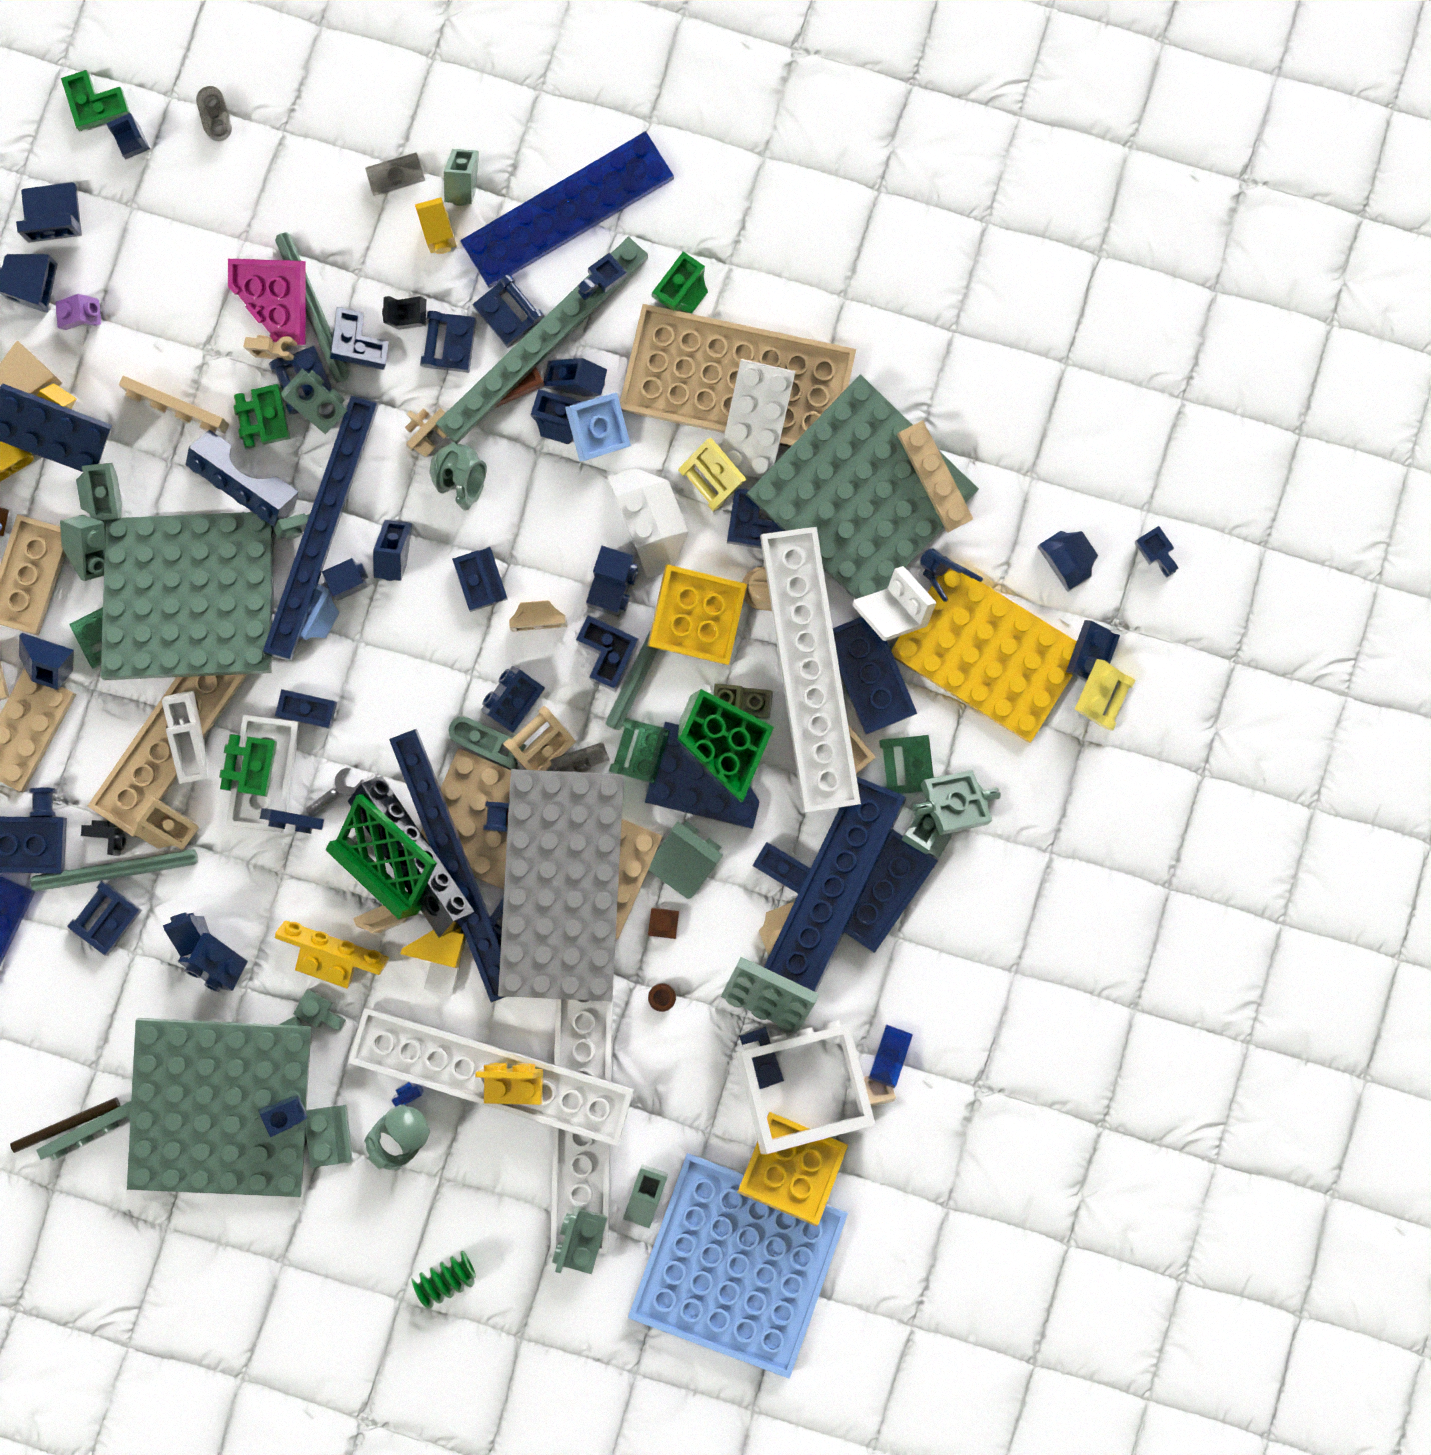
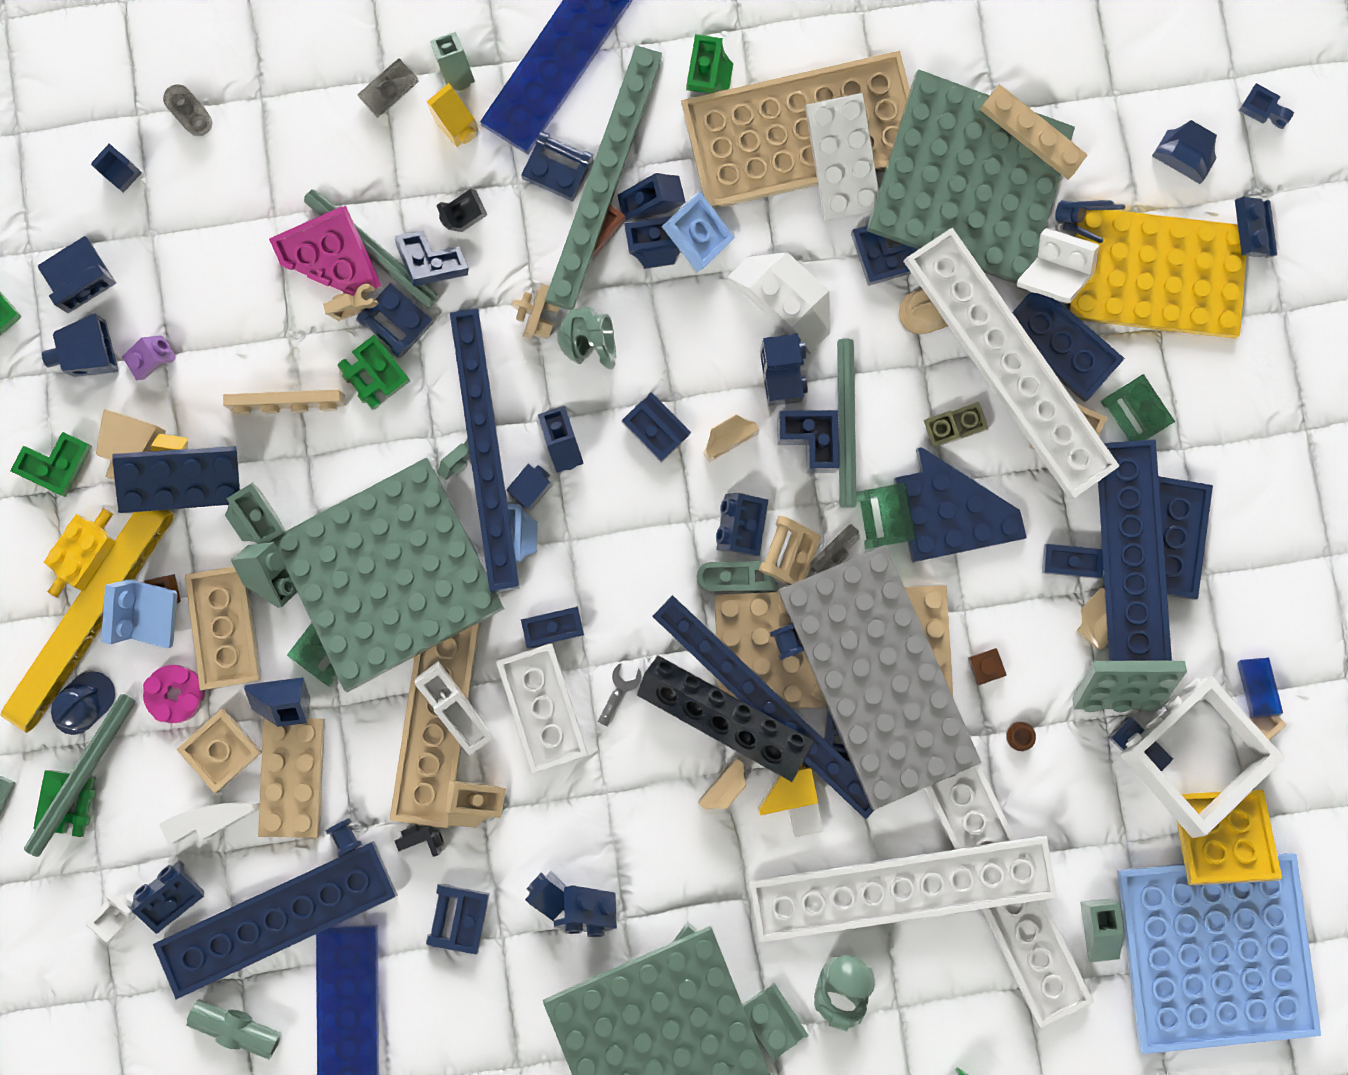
camera: 30 degrees left, 0 degrees up
(92, 108) = (66, 159): green plate -> none
(114, 870) = (444, 868): sand green axle -> none
(256, 765) = (534, 703): green plate -> none
(267, 498) = (417, 446): arch -> none
(283, 1115) = (728, 1025): dark blue leg -> none
(301, 822) = (582, 743): dark blue plate -> none
(310, 404) = (417, 337): sand green brick -> none
(316, 1009) = (701, 907): sand green plate -> none
(328, 956) = (692, 850): yellow bracket -> none
(373, 873) = (699, 752): green fence -> none
(407, 1093) = (830, 945): clear blue plate -> none
(457, 343) = (524, 219): dark blue plate -> none
(512, 1085) = (931, 887): yellow bracket -> none
(581, 1242) = (1066, 1004): sand green bracket -> none
(603, 274) = (634, 88): dark blue plate -> none
(685, 859) = (979, 596): sand green bracket -> none
(697, 614) = (877, 363): yellow plate -> none
(718, 471) = (828, 219): light yellow plate -> none
(724, 740) = (965, 465): green wedge -> none
(925, 836) = (1186, 458): sand green slope -> none
(956, 802) = (1203, 422): plate -> none
(1098, 692) = (1286, 260): light yellow plate -> none

